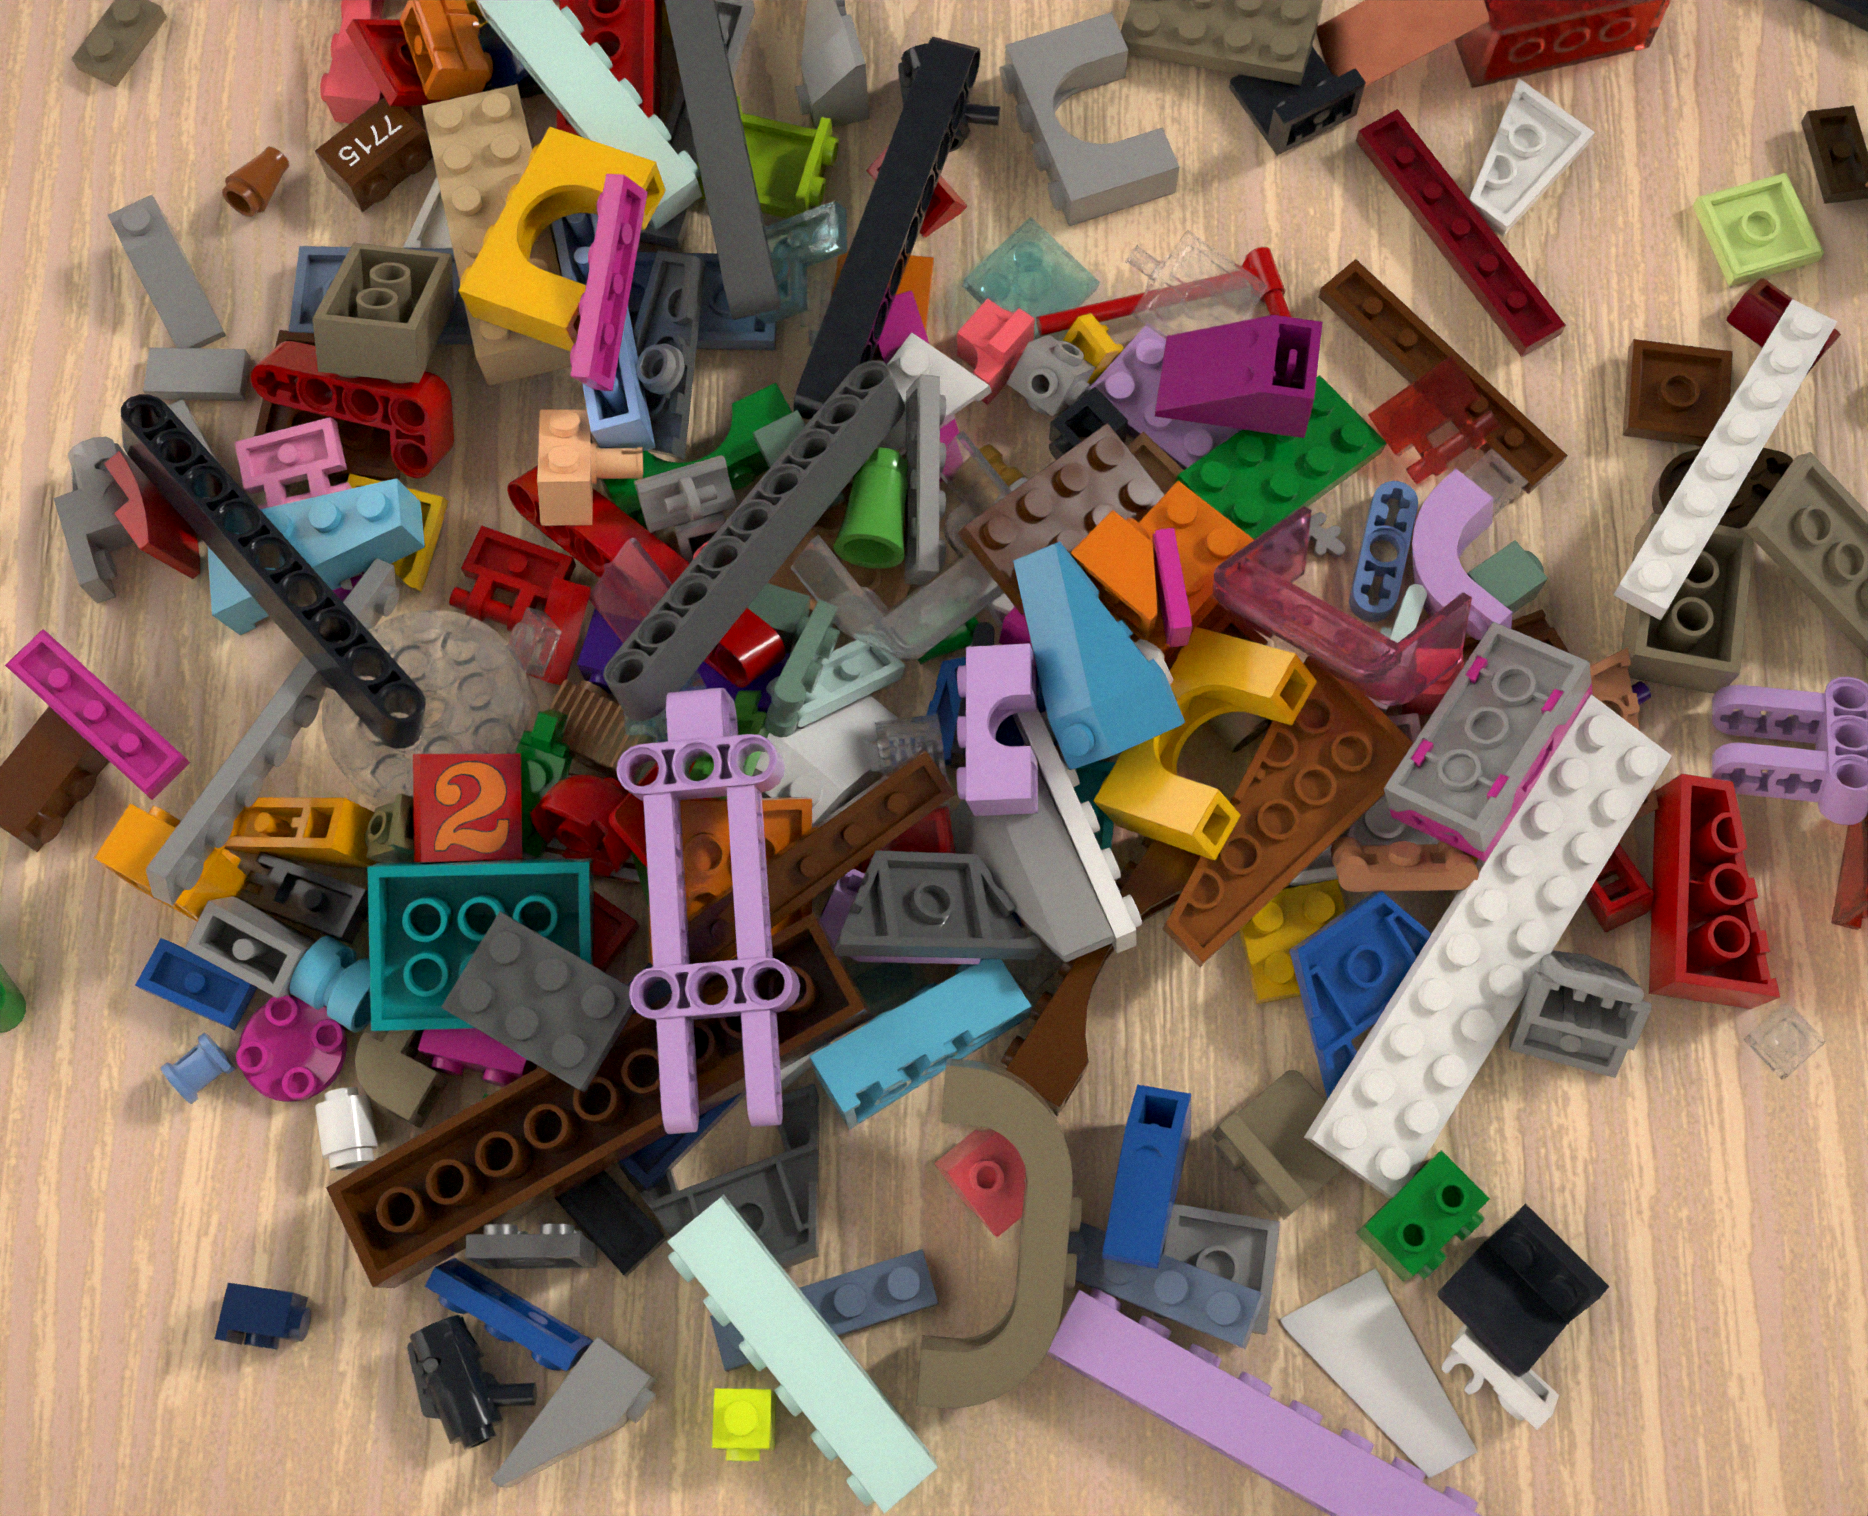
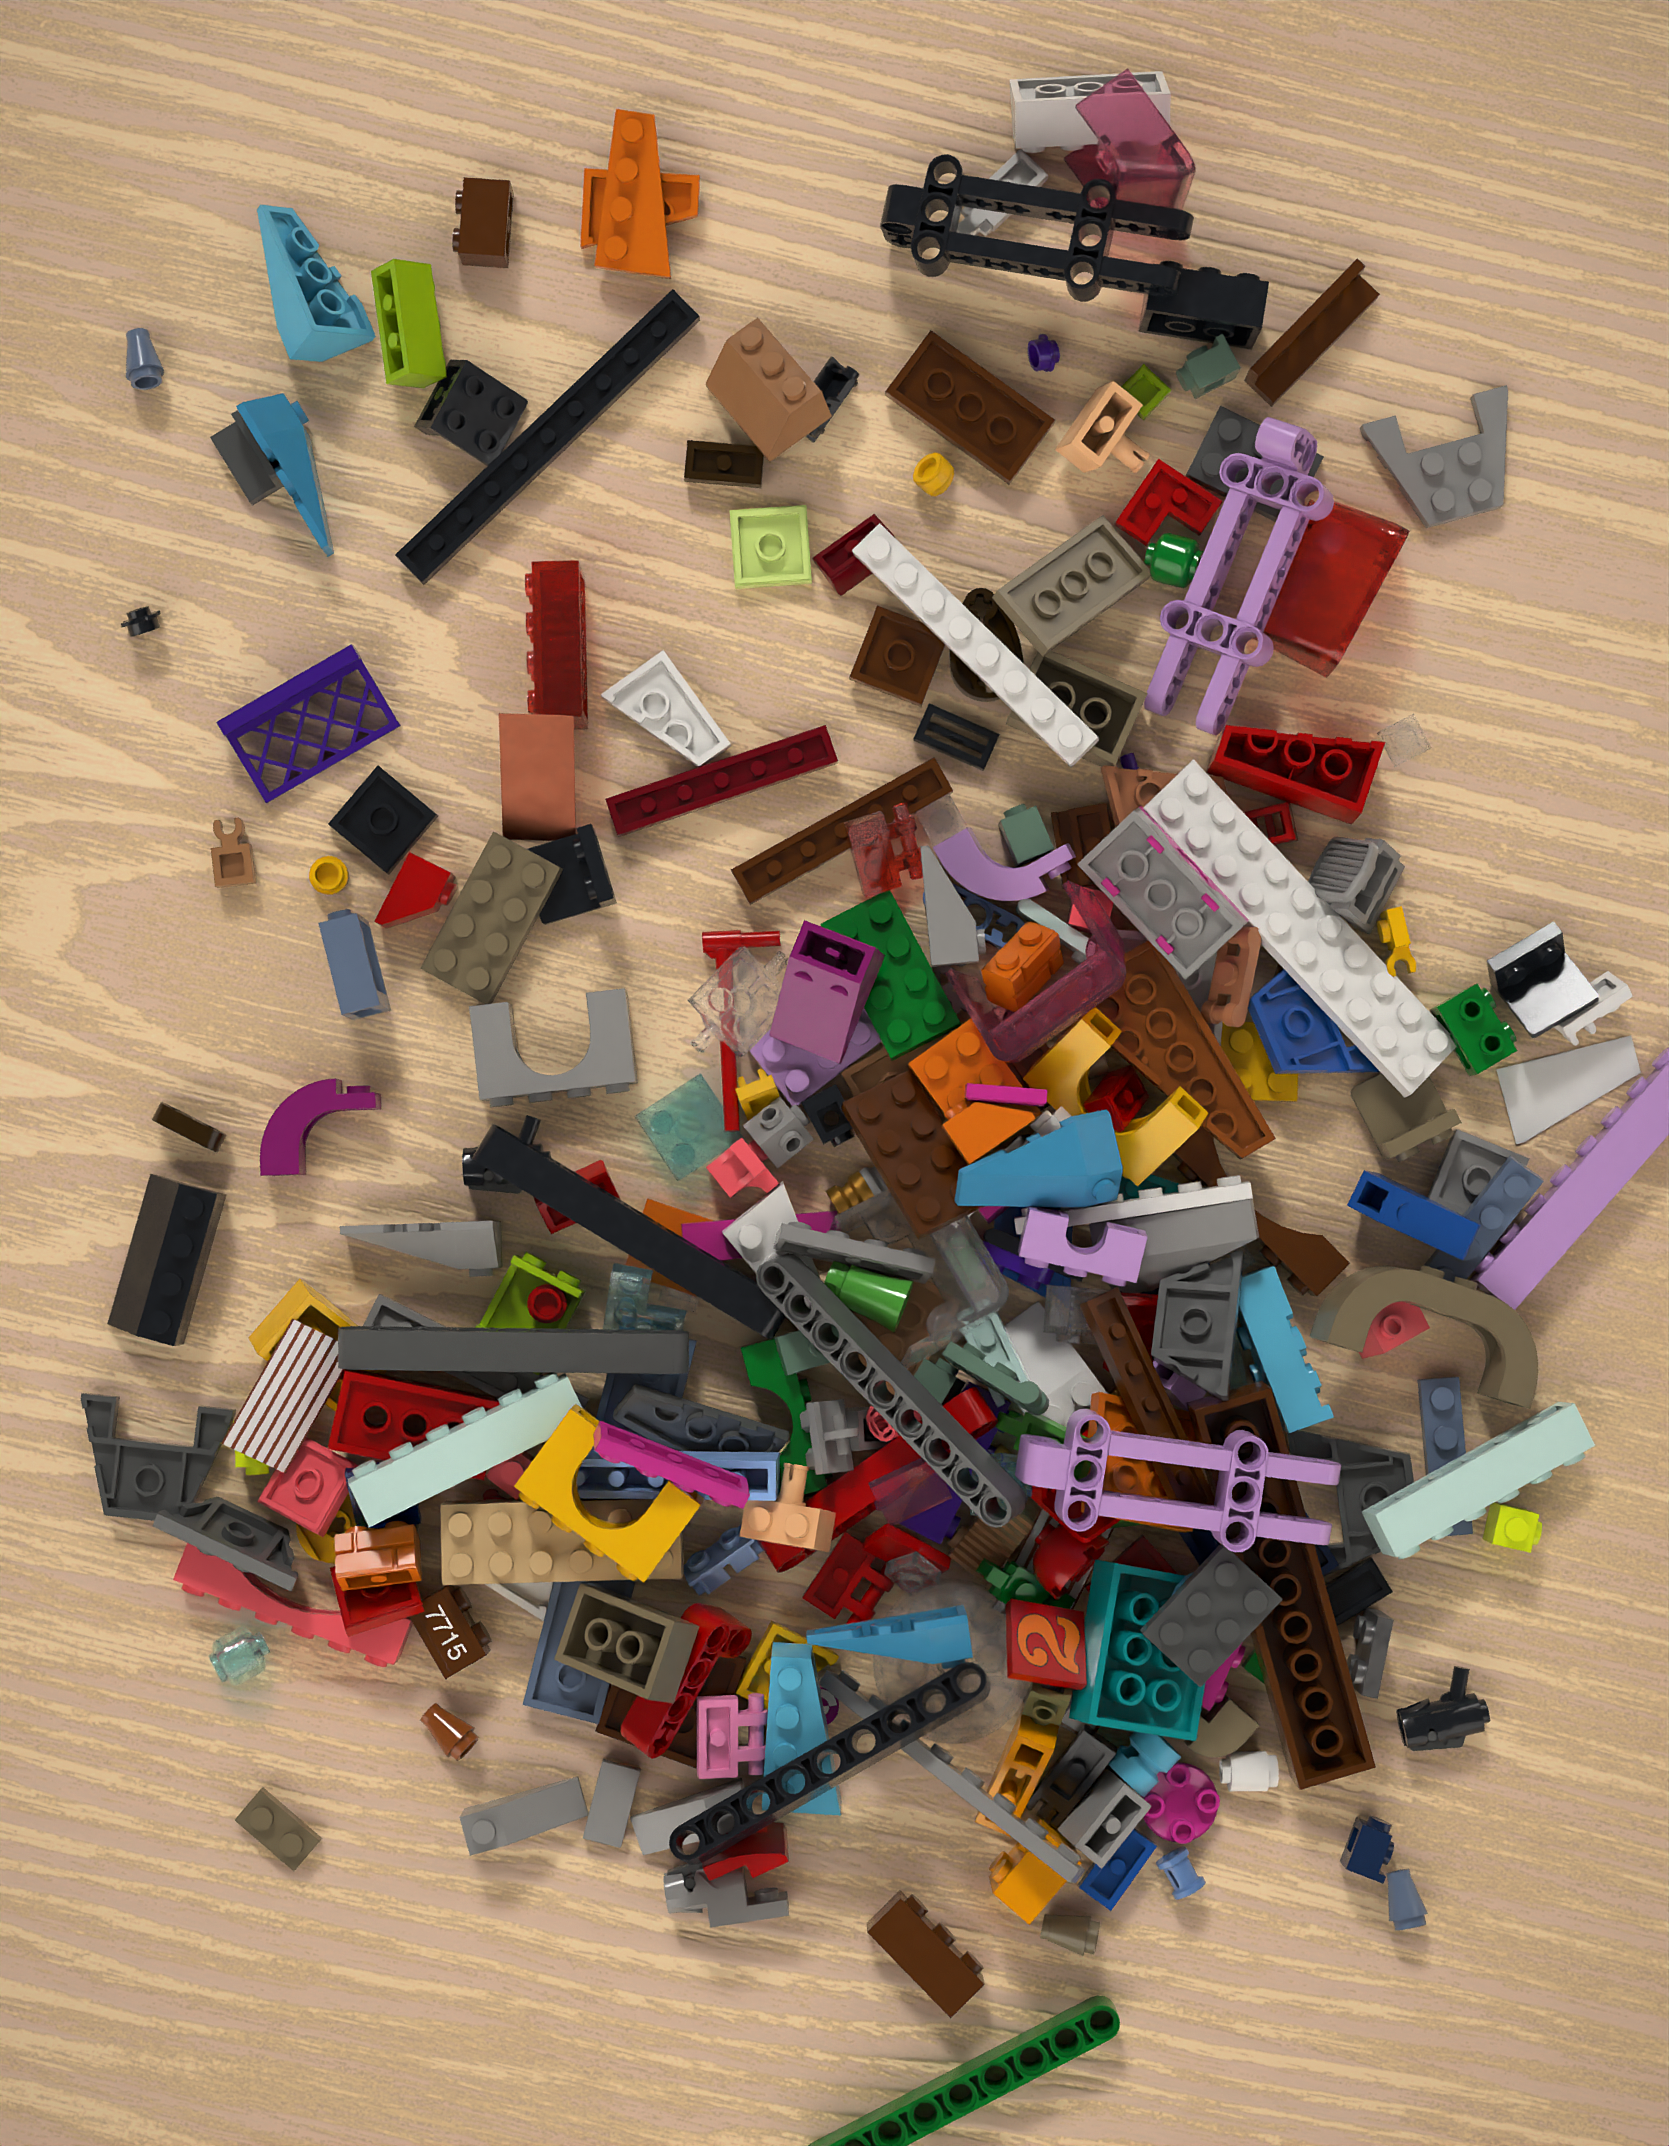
camera: 80 degrees left, 15 degrees up
(97, 714) = (901, 1912): dark pink tile -> none
(101, 946) = (1071, 1932): none -> dark tan cone
(197, 1384) = (1404, 1901): none -> sand blue cone
(448, 644) = (920, 1636): none -> dark azure wedge
(497, 417) = (706, 1567): none -> light blue hinge
(508, 1315) = (1406, 1675): blue plate -> none
(589, 1405) = (1480, 1633): light grey slope -> none
(660, 368) = (721, 1444): light grey plate -> none
(781, 170) = (547, 1303): none -> red plate
(945, 696) = (1028, 1274): none -> dark purple plate
(1199, 757) = (1120, 1094): none -> red slope
(1340, 584) = (1022, 966): none -> orange brick
(1371, 491) = (949, 922): none -> light grey slope
(1523, 1077) = (1394, 932): none -> yellow plate
(1594, 520) = (946, 749): none -> black tile

